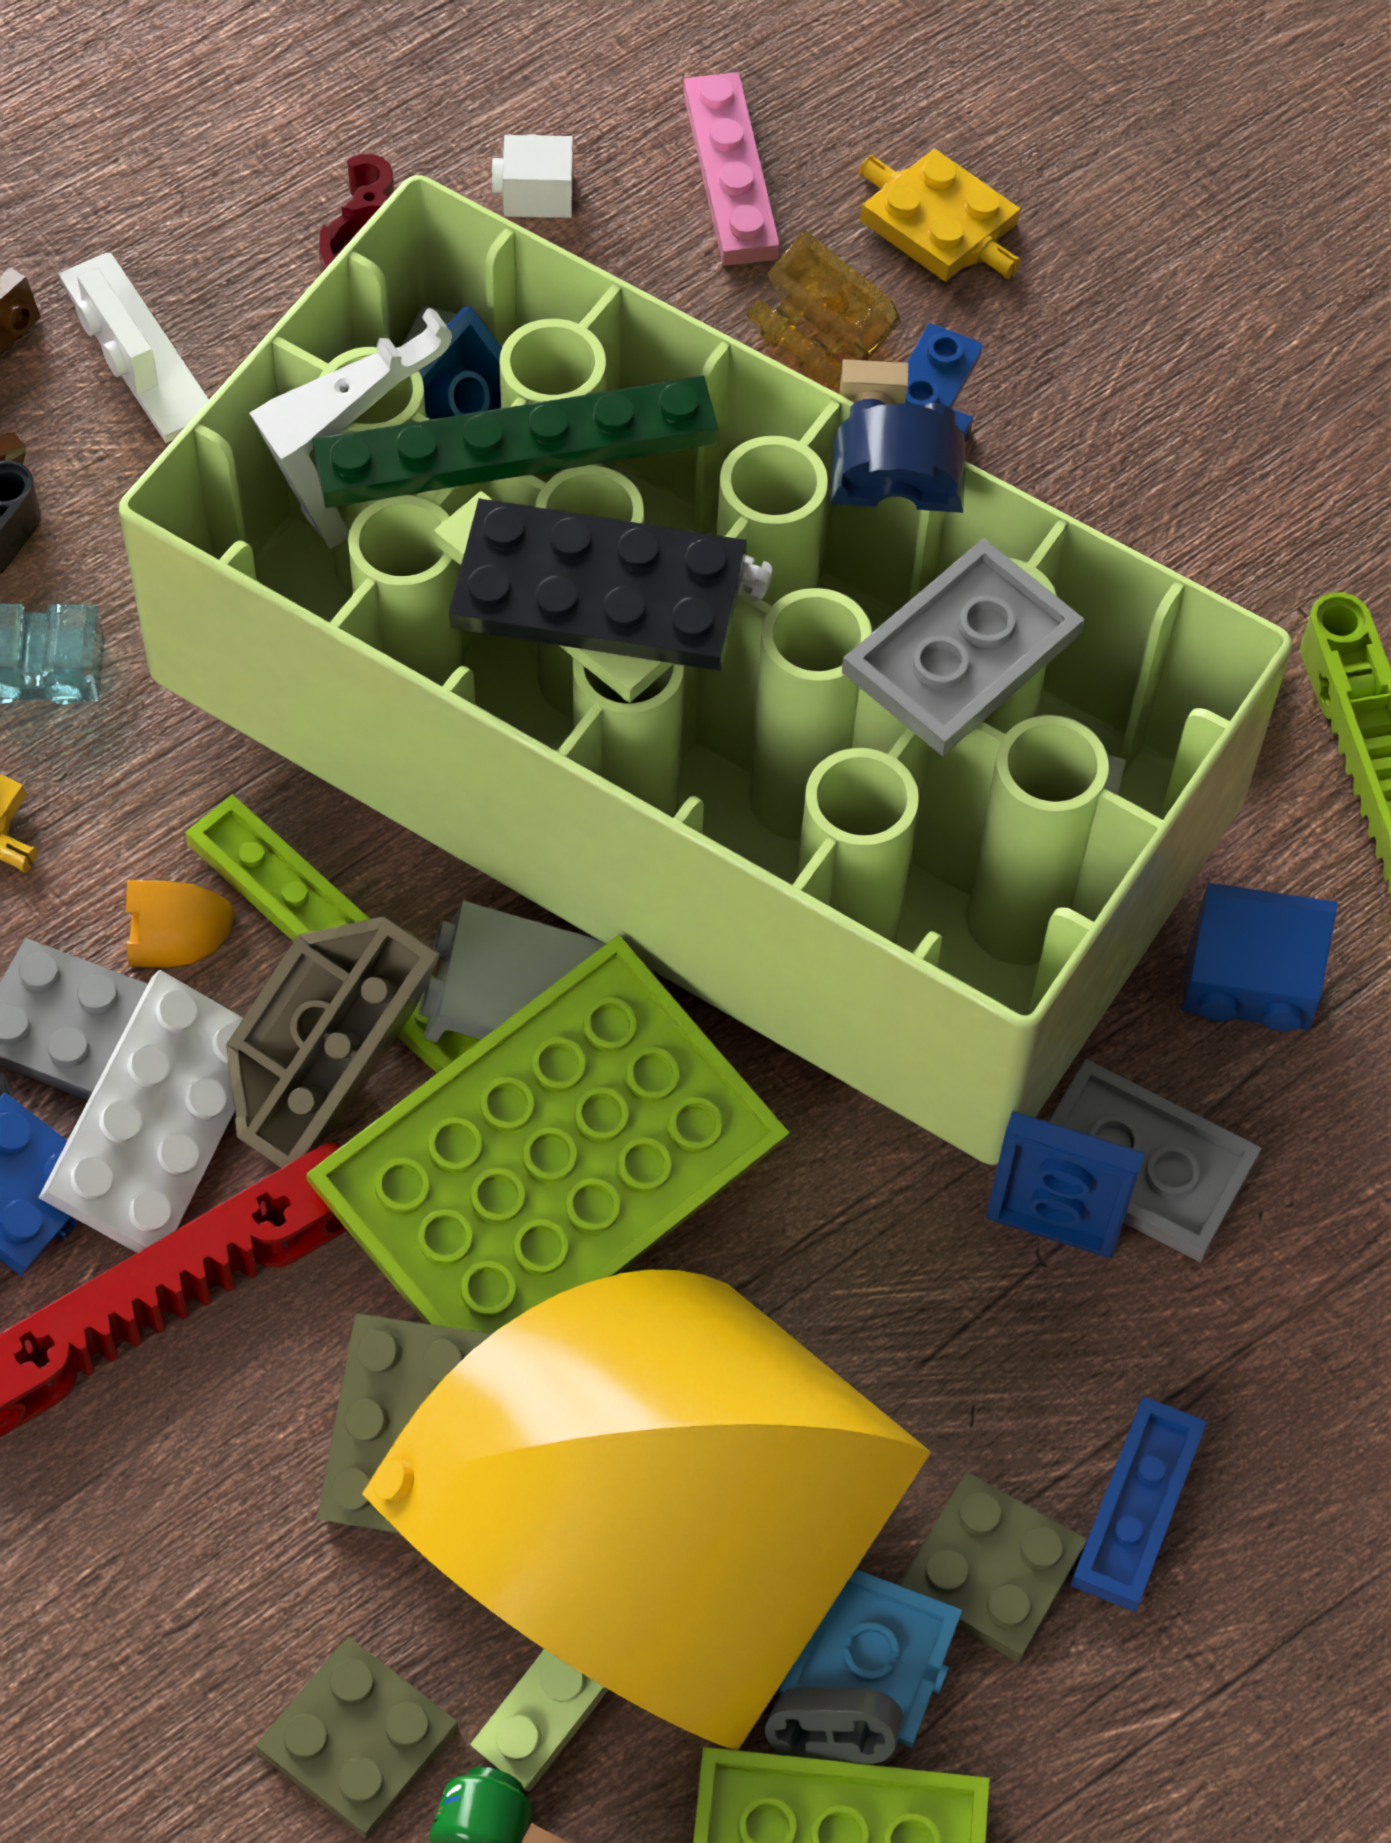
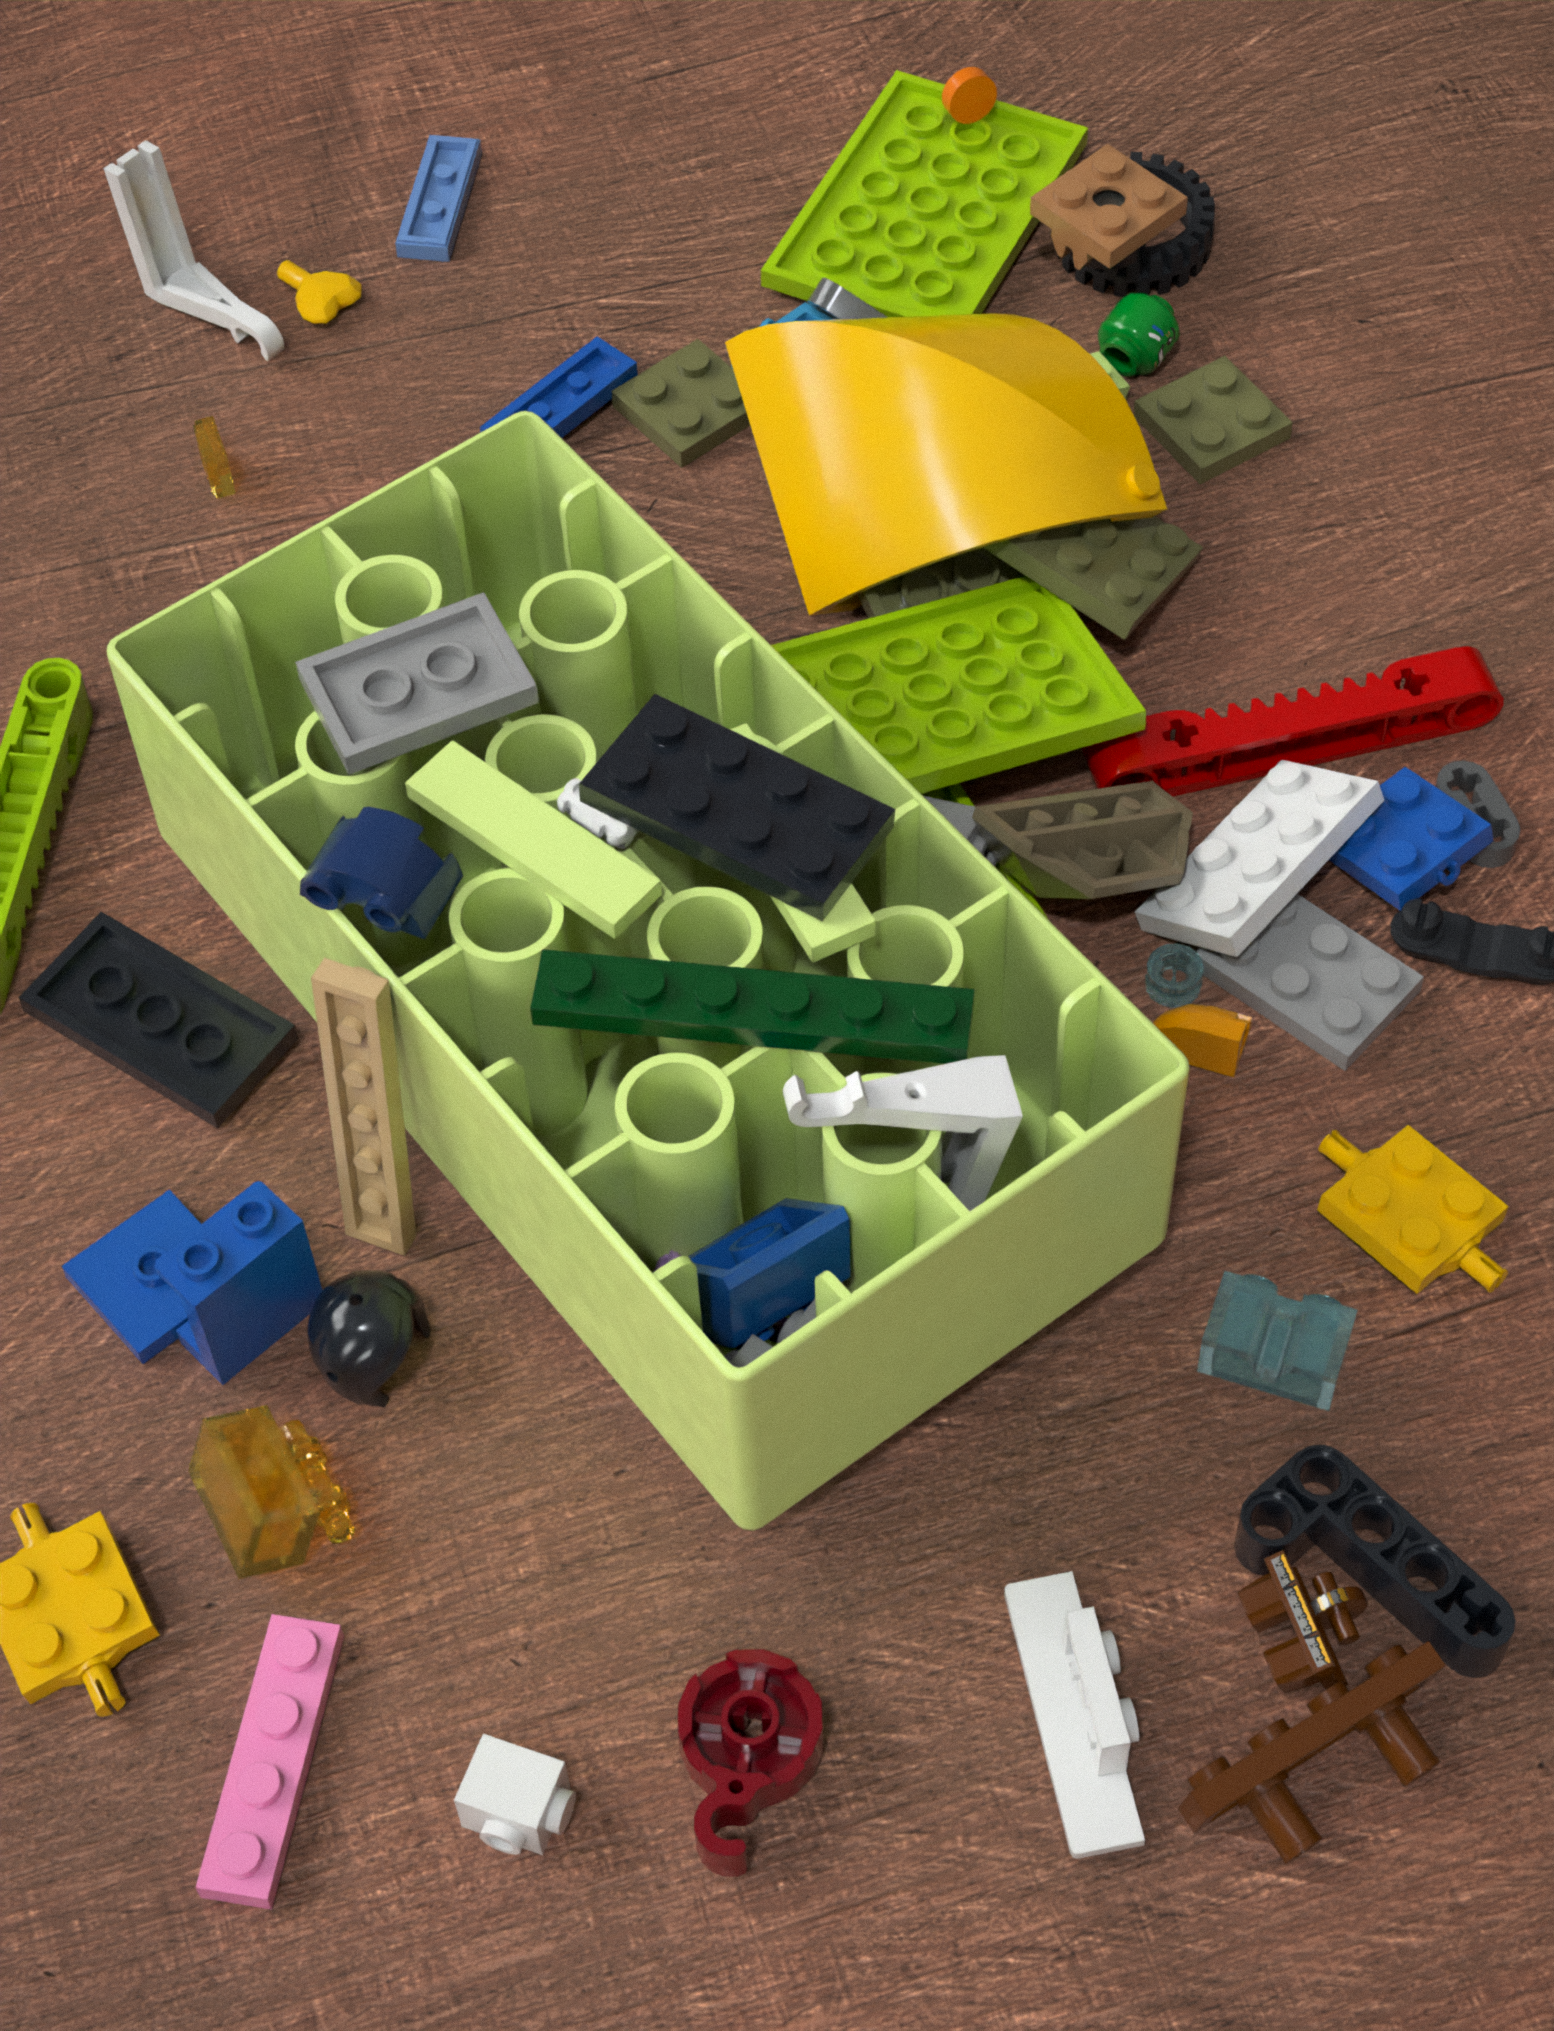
camera: 155 degrees left, 5 degrees down
(215, 965) = (1174, 993): none -> clear light blue bush
(788, 537) = (534, 839): none -> yellowish green tile
(1028, 450) = (121, 1278): none -> blue plate

